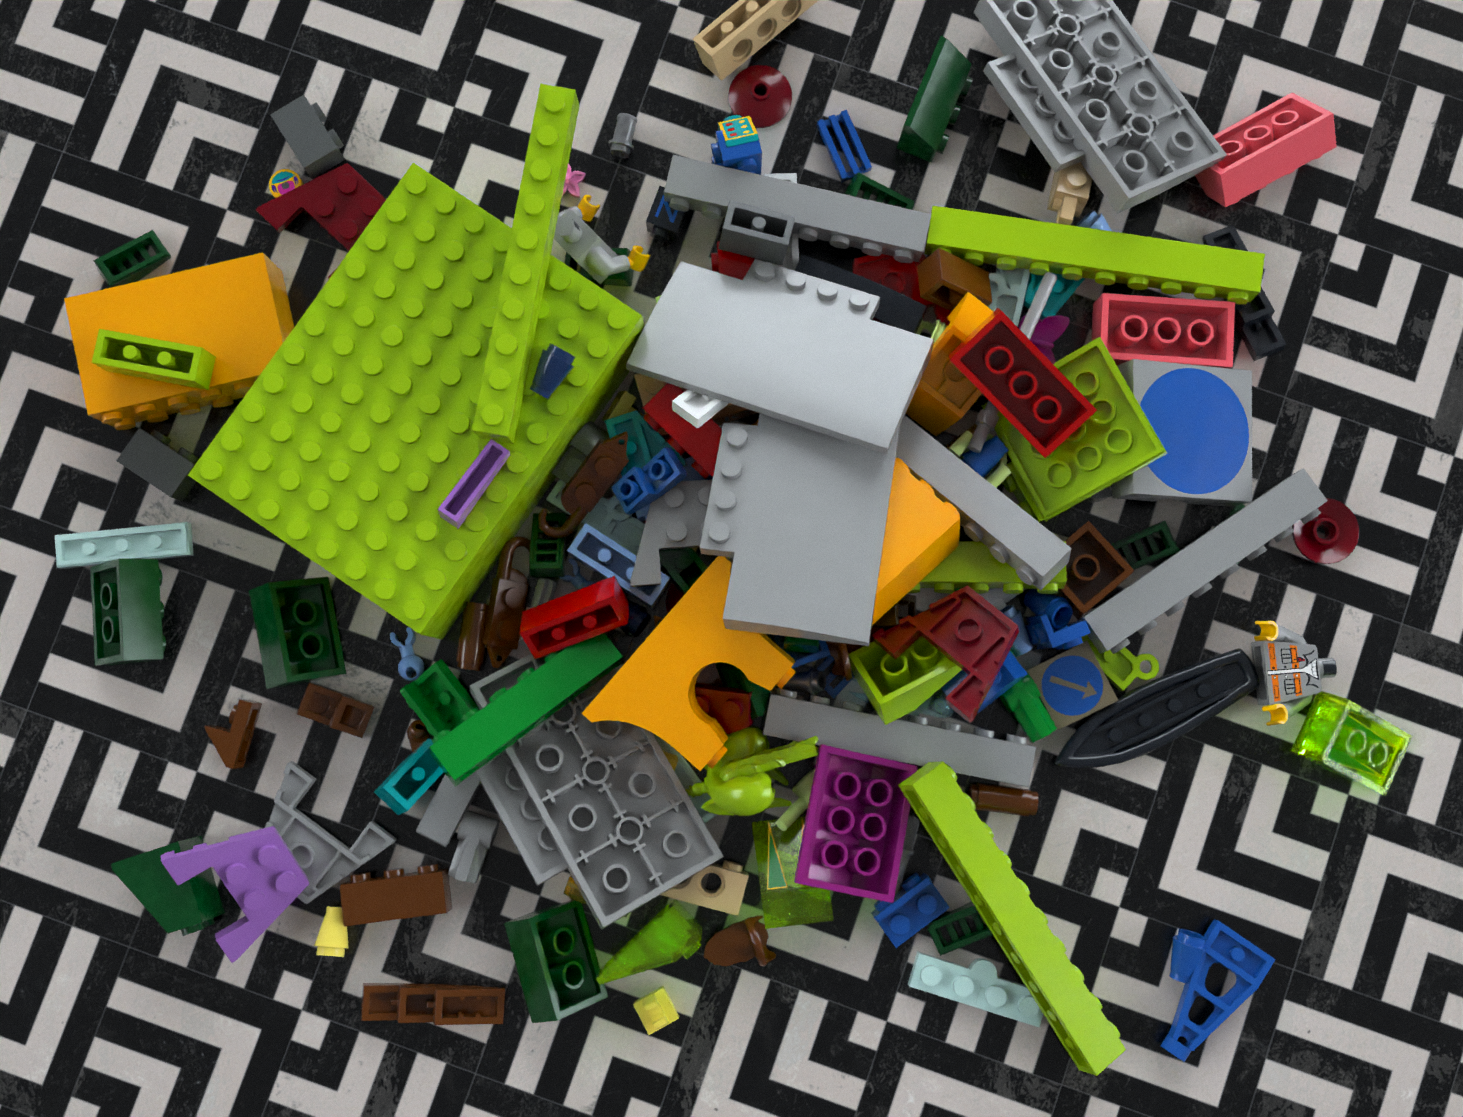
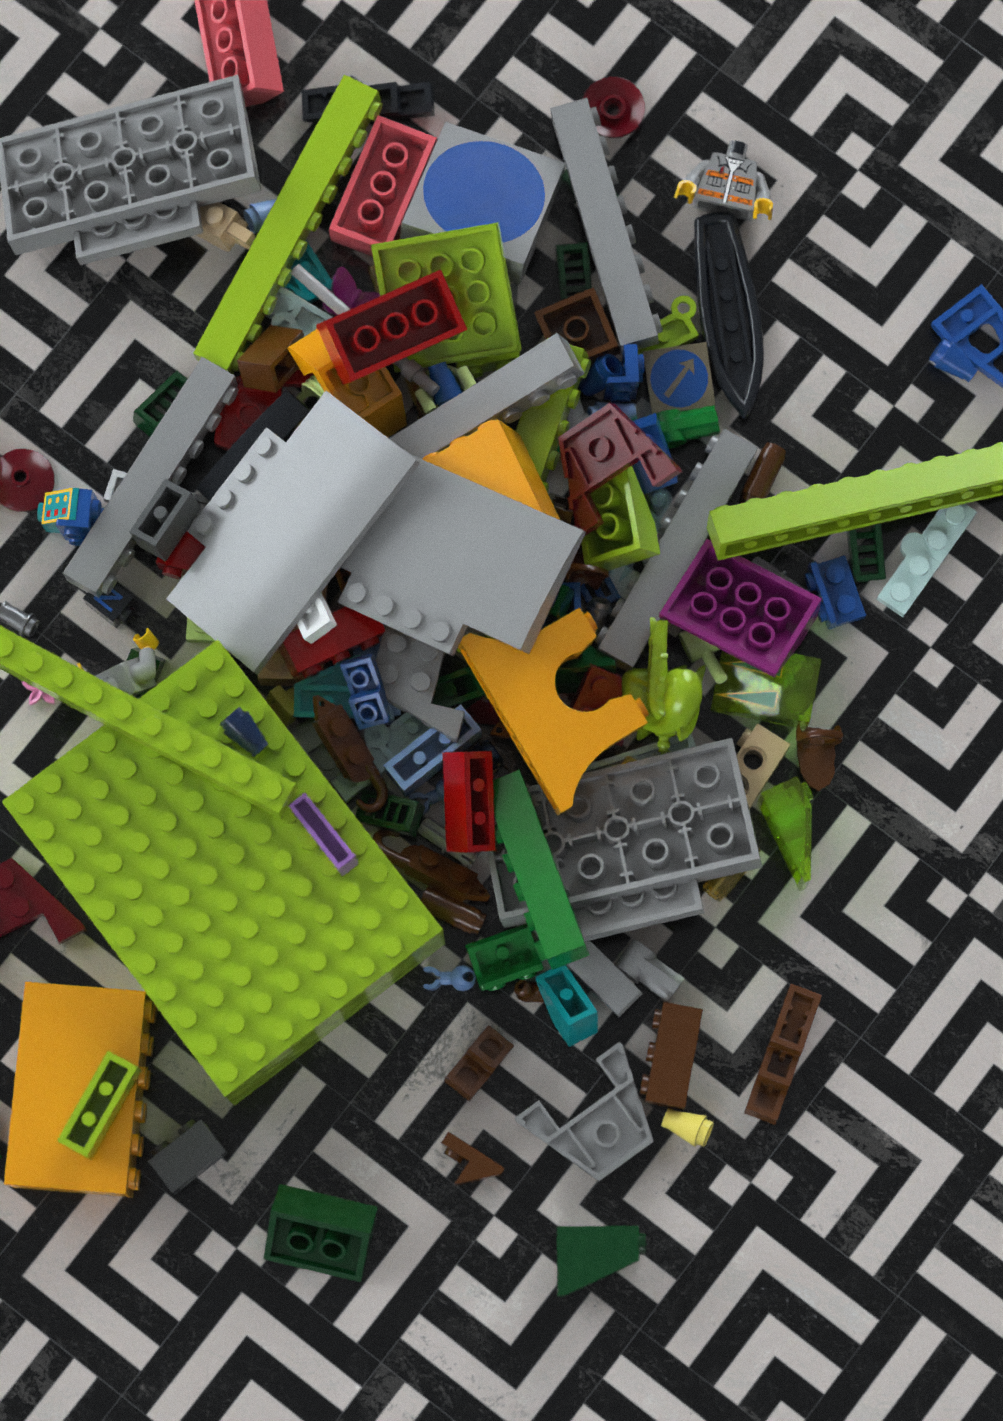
camera: 65 degrees left, 5 degrees down
(126, 543) = (252, 1219): light aqua tile -> none
(257, 874) = (614, 1168): medium lavender wing -> none
(297, 631) = (393, 1074): dark green slope -> none
(555, 961) = (779, 927): dark green slope -> none
(656, 1010) = (854, 851): light yellow tile -> none
(833, 121) = (99, 405): blue tile -> none
(936, 102) = (92, 319): dark green slope -> none
(1351, 742) = (811, 151): clear neon green slope -> none

